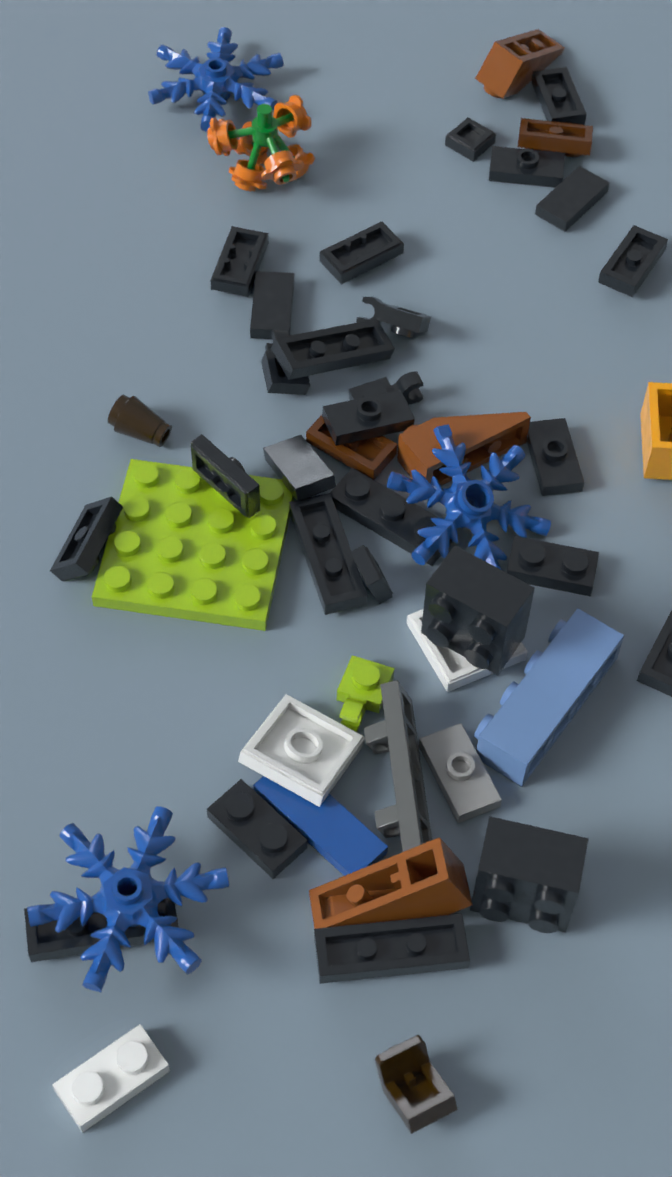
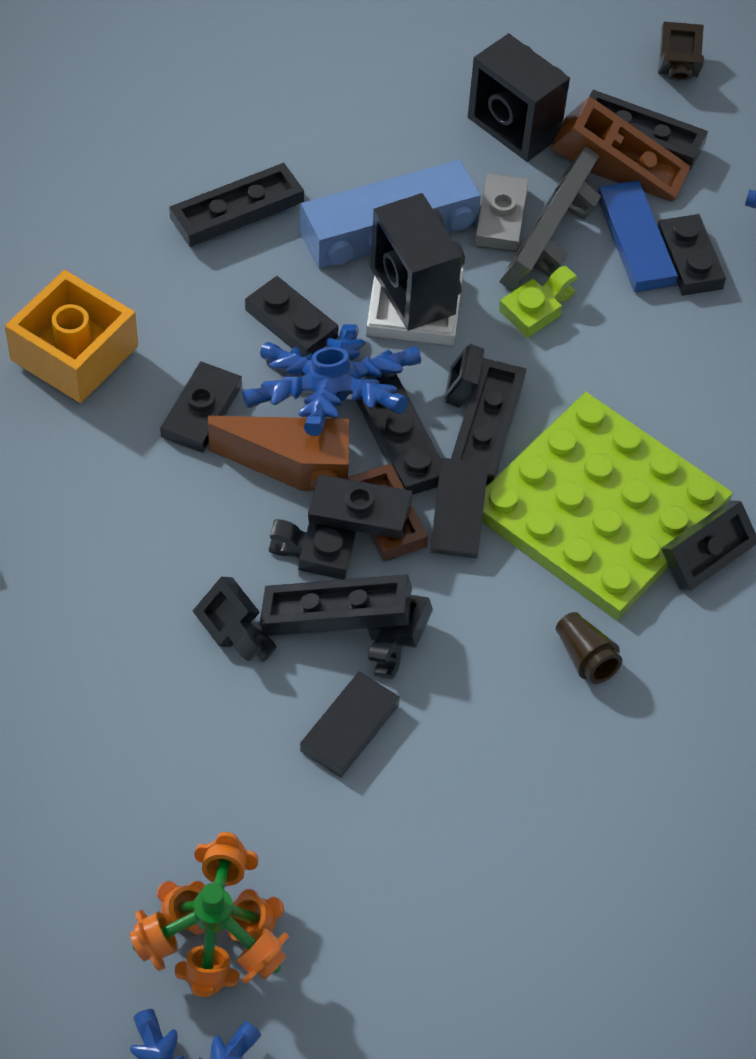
camera: 150 degrees left, 0 degrees up
(225, 476) = (549, 505): black plate -> none
(239, 261) = (349, 796): black plate -> none
(301, 750) = (623, 276): white tile -> none
(361, 252) = (203, 730): black plate -> none

